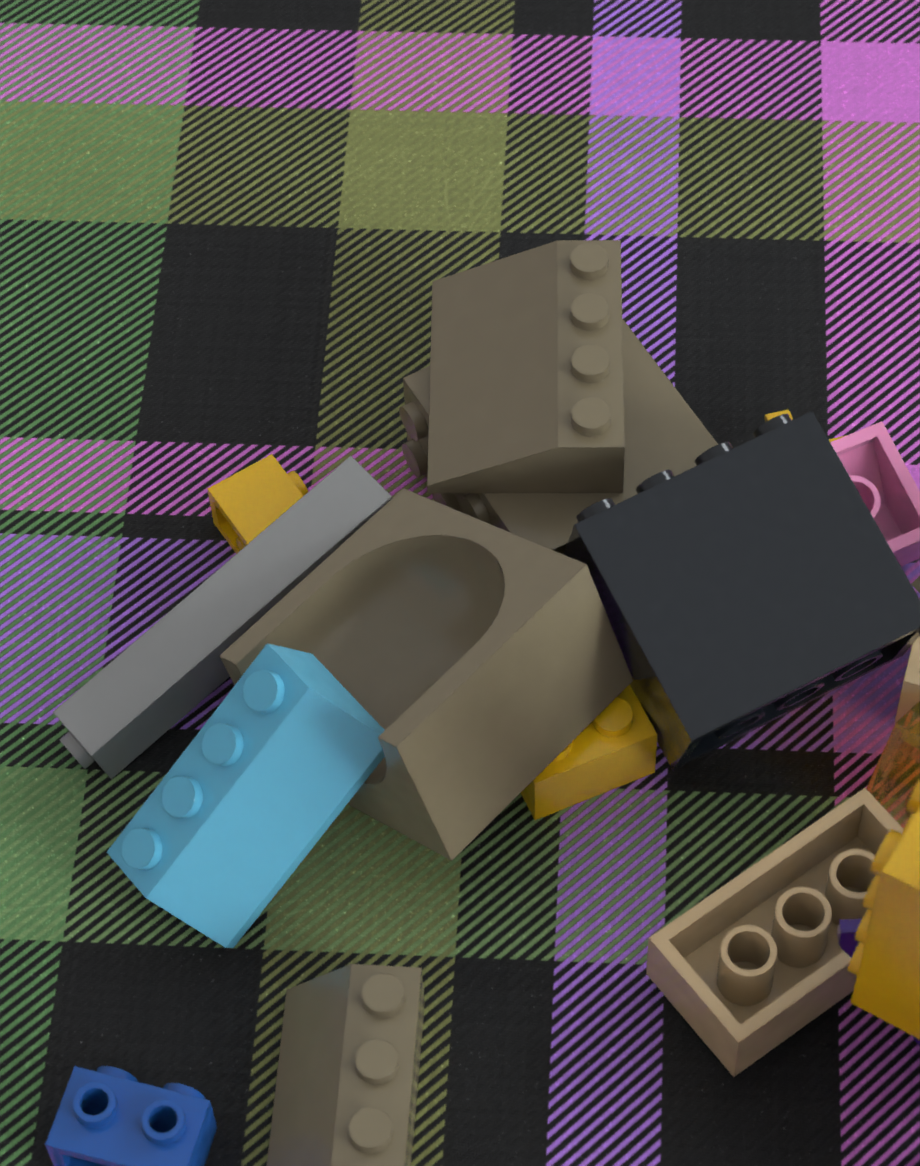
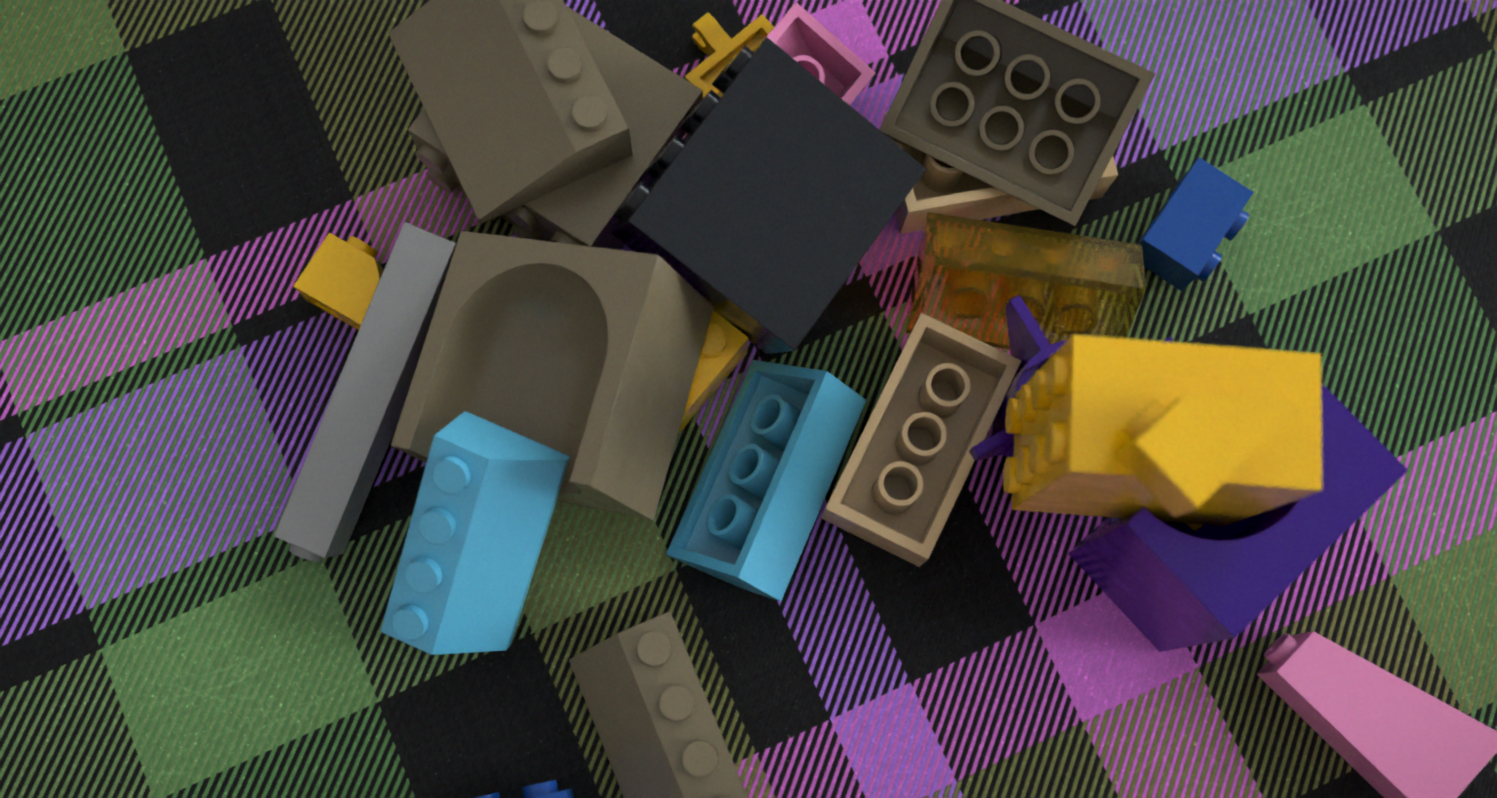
camera: 35 degrees left, 20 degrees up
(603, 896) = (767, 477): none -> medium azure slope

